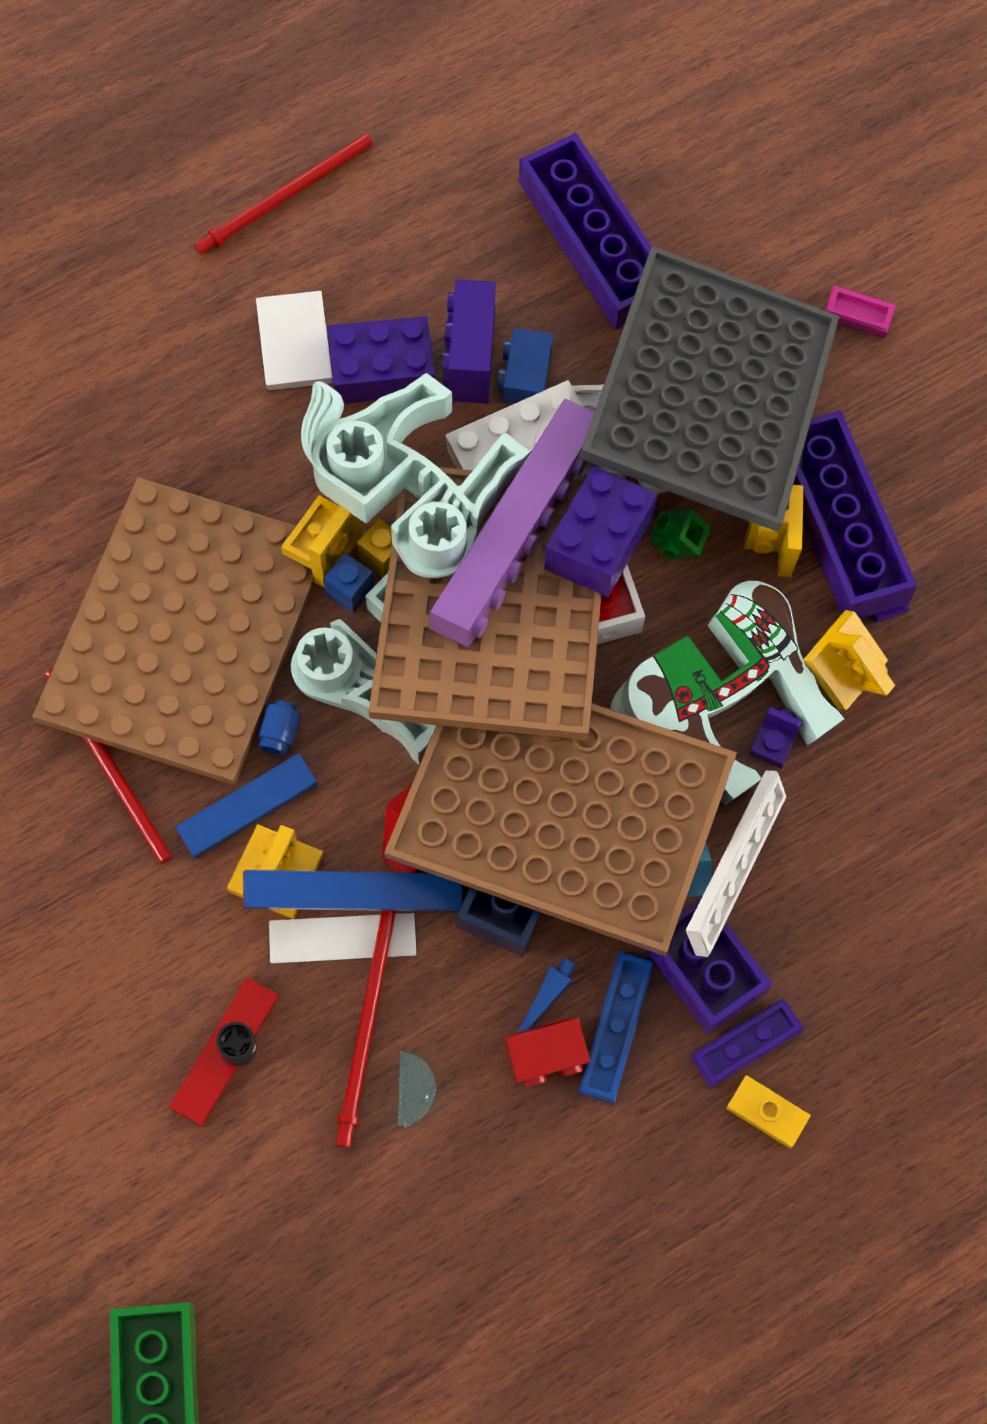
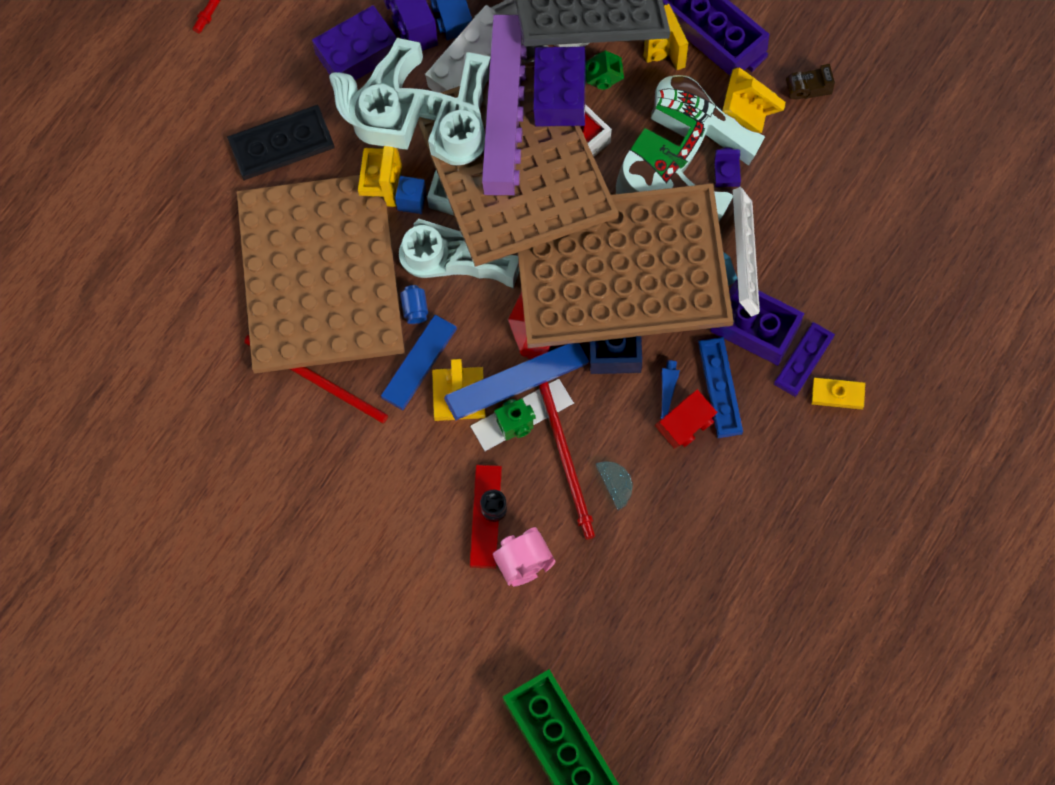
camera: 20 degrees left, 0 degrees up
(226, 439) = (280, 142): none -> black tile
(237, 1133) = (523, 557): none -> bright pink brick
(294, 340) = (291, 60): white tile -> none
(317, 931) = (515, 419): none -> green brick
(375, 547) = (419, 164): yellow brick -> none
(944, 674) = (811, 83): none -> dark brown leg

